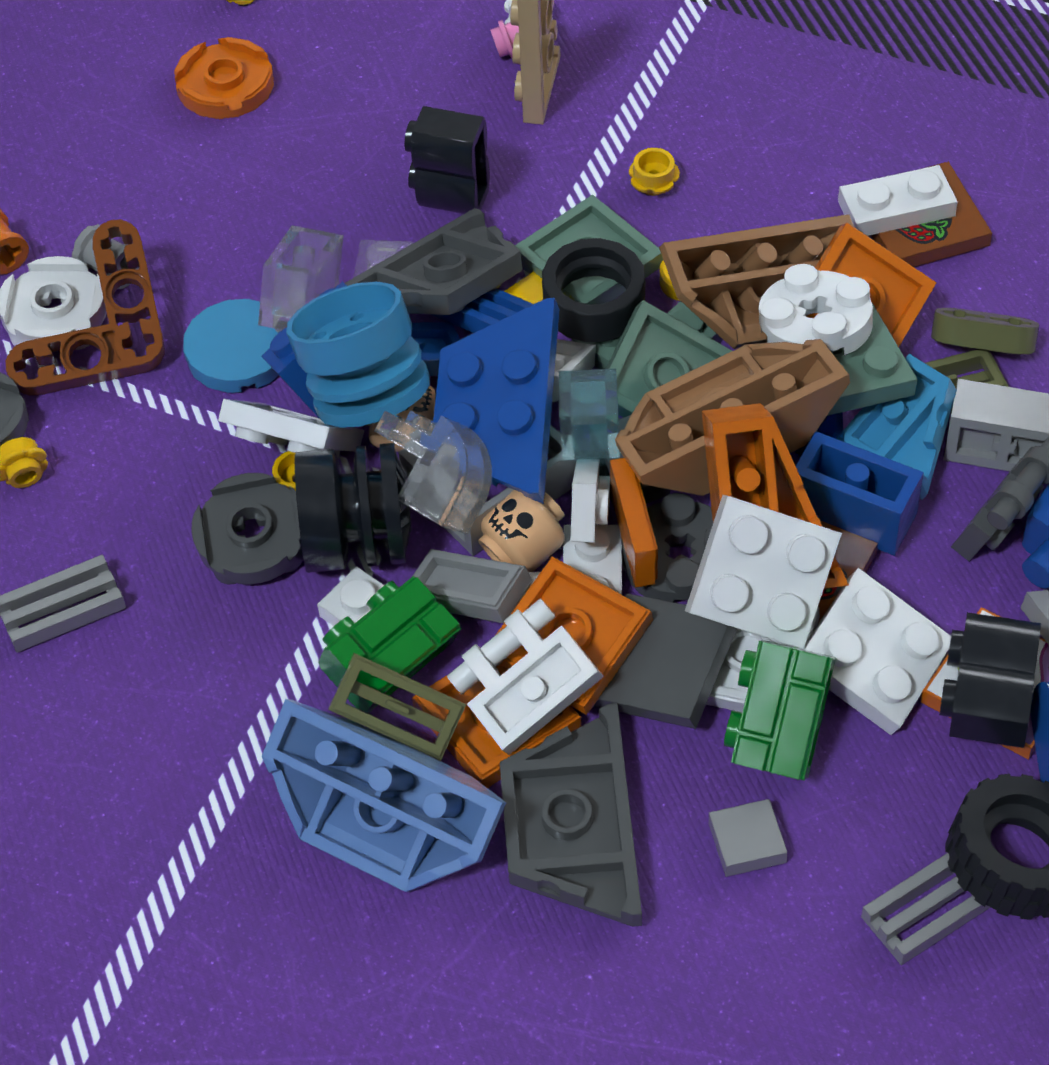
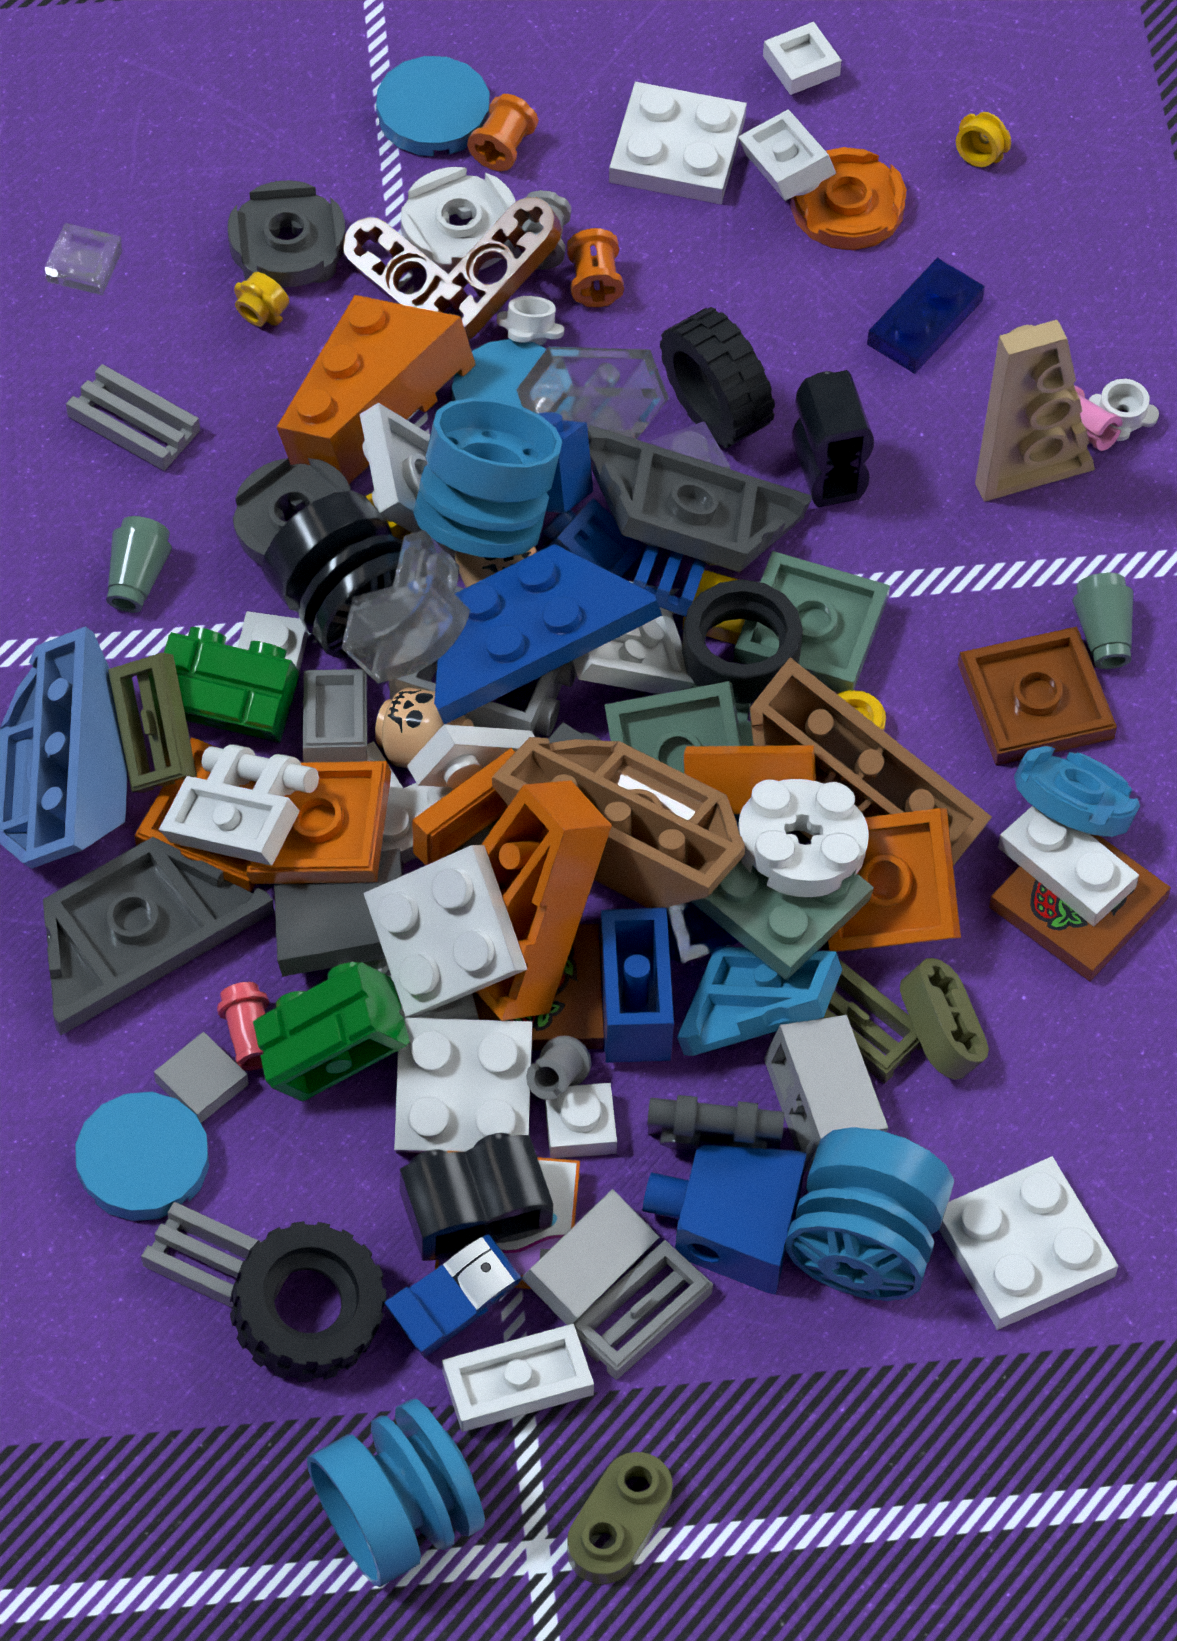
camera: 55 degrees right, 5 degrees up
(82, 43) = (802, 58): none -> white plate
(91, 148) = (677, 142): none -> white plate
(169, 82) = (787, 155): none -> white plate
(170, 413) = (372, 357): none -> orange wedge
(171, 240) = (593, 268): none -> orange bush
(185, 300) = (530, 320): none -> white plate
(210, 659) = (136, 561): none -> sand green cone
(347, 171) = (717, 376): none -> black tyre
(362, 81) = (925, 315): none -> clear blue plate
(588, 414) = (559, 700): clear light blue brick -> none
(653, 171) = (971, 614): yellow plate -> none
(701, 96) = (1106, 617): none -> sand green cone
(720, 778) = (240, 1007): none -> coral pin
(729, 323) = (739, 768): none -> orange tile
(733, 166) = (1036, 695): none -> dark orange tile
(799, 915) = (142, 1155): none -> dark azure tile
(844, 168) = (1076, 792): none -> dark azure tile
(899, 576) = (561, 1064): none -> light grey pin
(940, 593) = (581, 1122): none -> white plate

